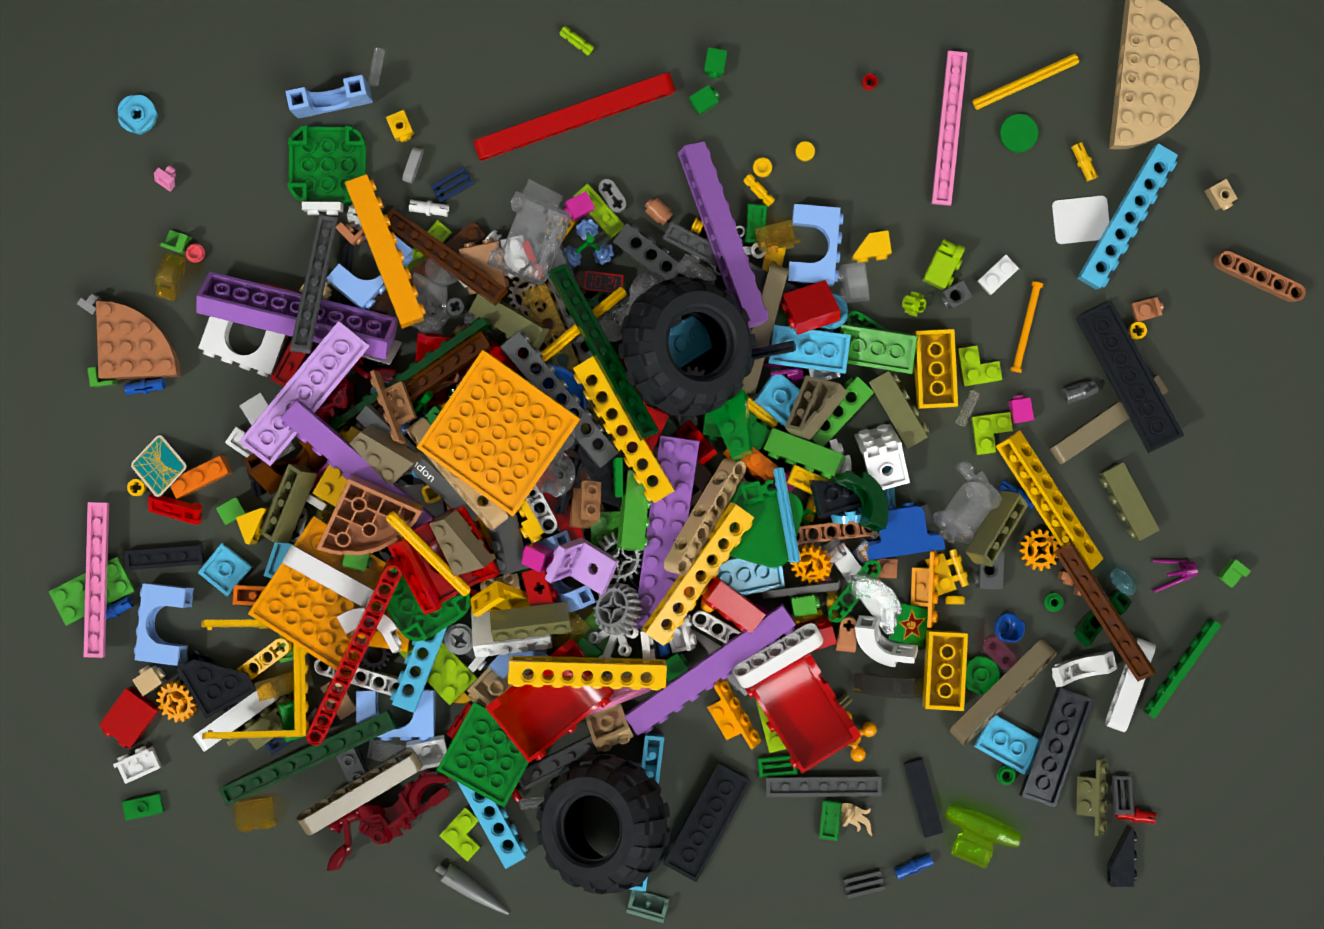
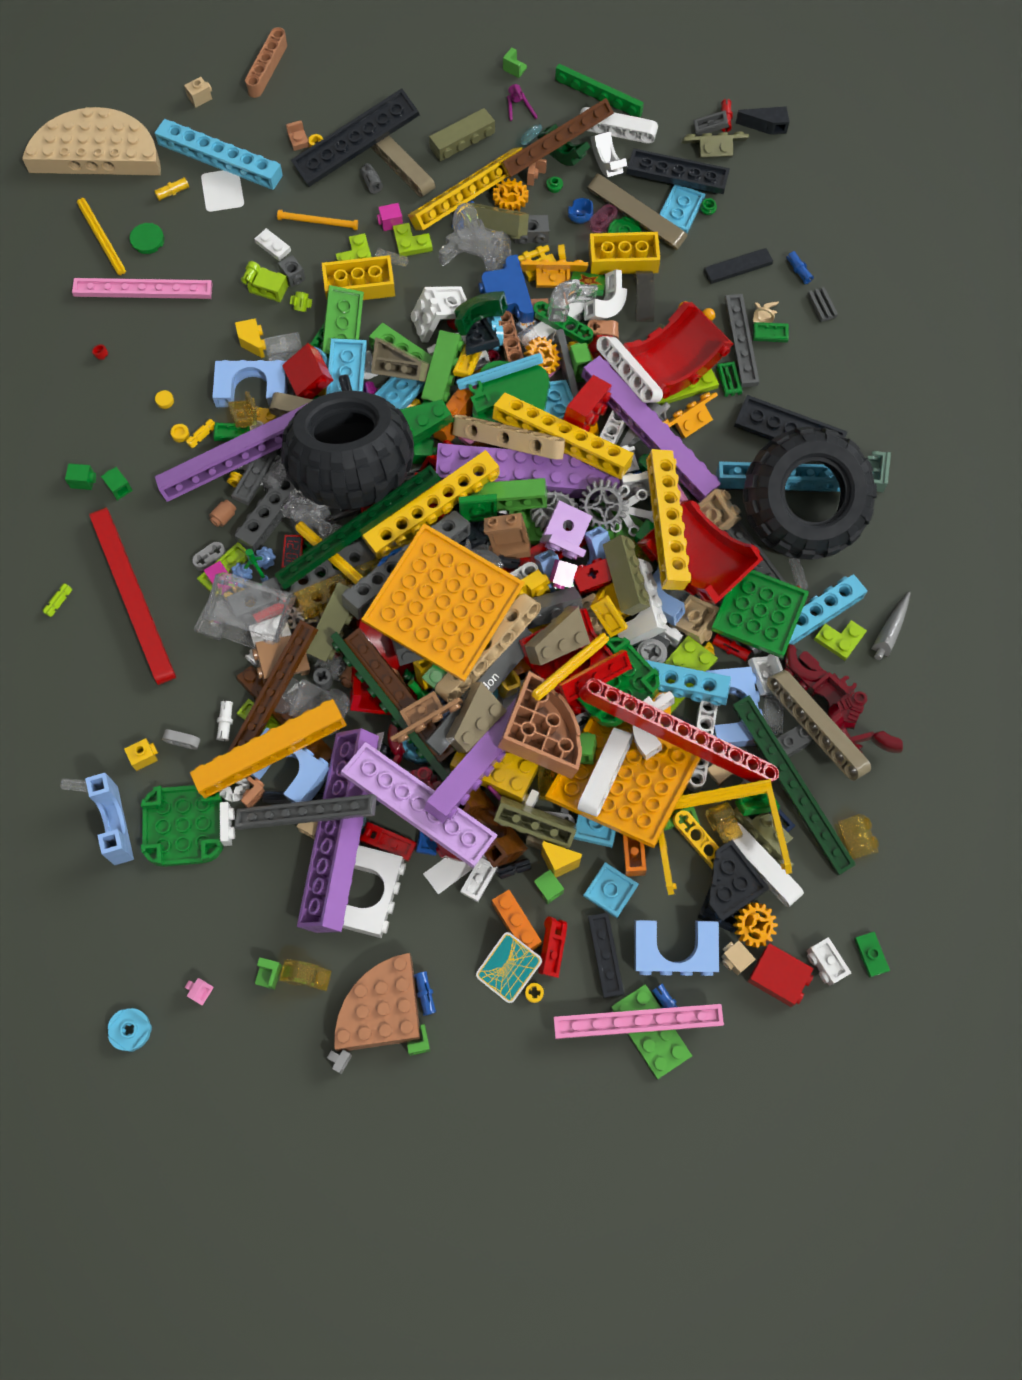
camera: 90 degrees left, 20 degrees down
(195, 253) = (278, 952): coral plate -> none
(437, 192) = (193, 690): dark blue tile -> none
(899, 408) = (394, 305): olive brick -> none
(979, 834) = (761, 219): clear neon green plate -> none

